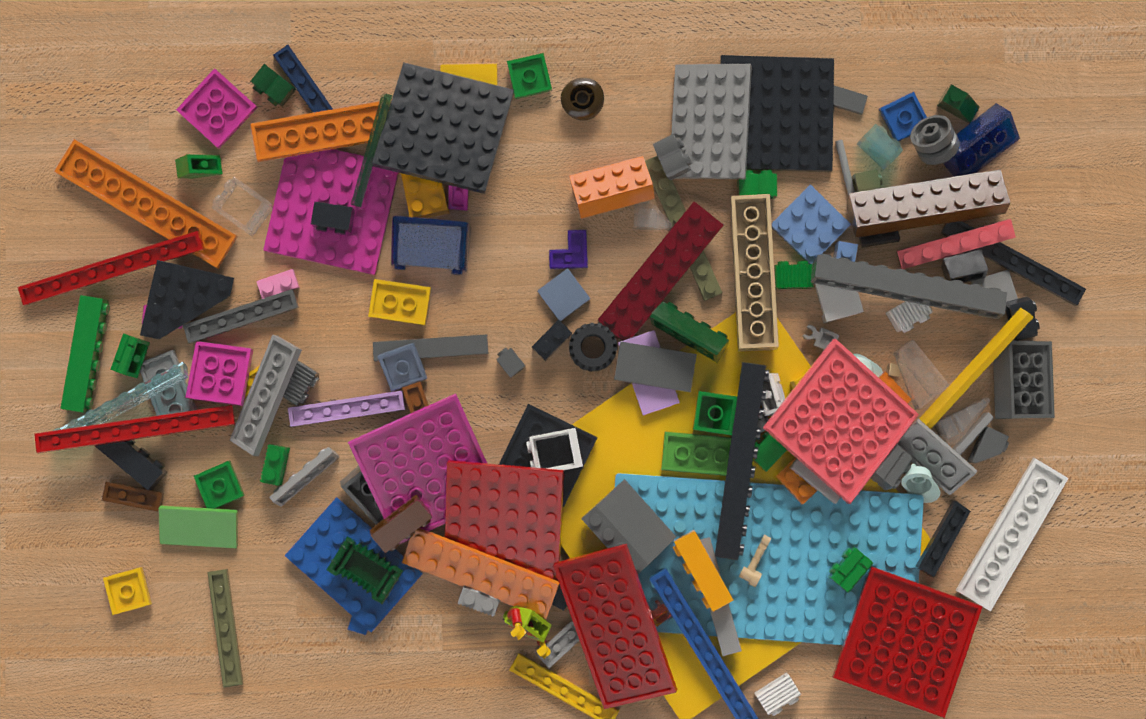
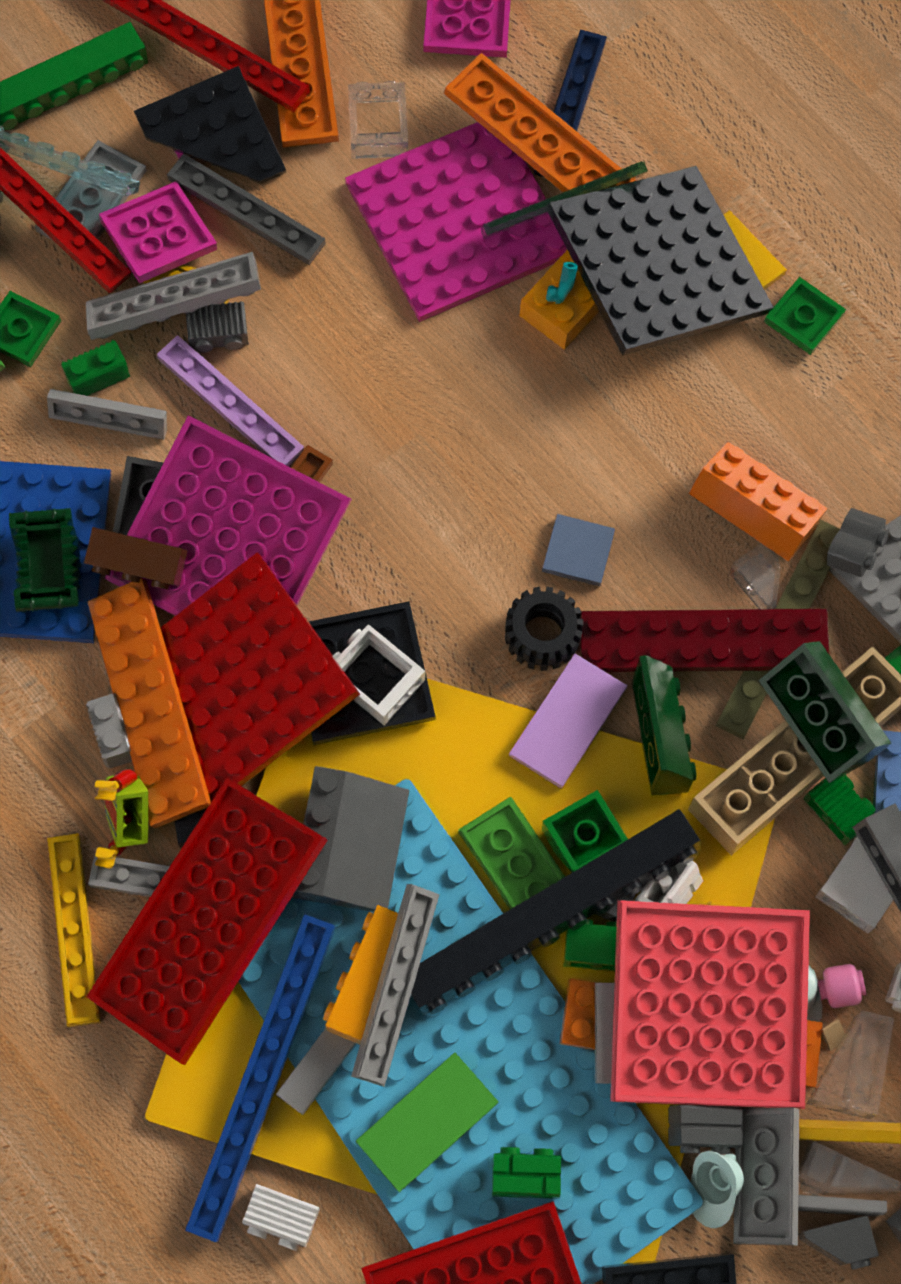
camera: 45 degrees right, 15 degrees down
(130, 356) = (101, 123): green brick -> none
(198, 166) = (384, 41): green slope -> none
(272, 85) = (546, 53): dark green brick -> none
(278, 283) = (320, 222): bright pink plate -> none
(332, 217) = (448, 217): black brick -> none
(399, 302) = (410, 368): yellow plate -> none
(402, 367) = (334, 427): sand blue tile -> none
(422, 189) = (566, 283): none -> teal arm
(430, 244) = (511, 348): clear blue windscreen -> none
(438, 346) = (384, 445): dark grey tile -> none
(458, 198) = (592, 340): dark pink plate -> none
(510, 362) = (443, 547): dark grey brick -> none
(552, 340) = (509, 573): black brick -> none
(573, 257) = (635, 527): dark purple tile -> none
(582, 98) = (832, 392): dark brown hat -> none
(655, 366) = (582, 720): dark grey tile -> none
(660, 614) = (267, 966): clear red tile -> none
(719, 563) = (395, 985): none -> light grey tile
(748, 250) = (824, 711): none -> dark green slope
(750, 573) = (414, 1046): tan brick -> none
(789, 595) = (427, 1122): none -> bright green tile
(821, 338) = (793, 900): light grey plate -> none
(876, 348) = (842, 986): none -> bright pink head

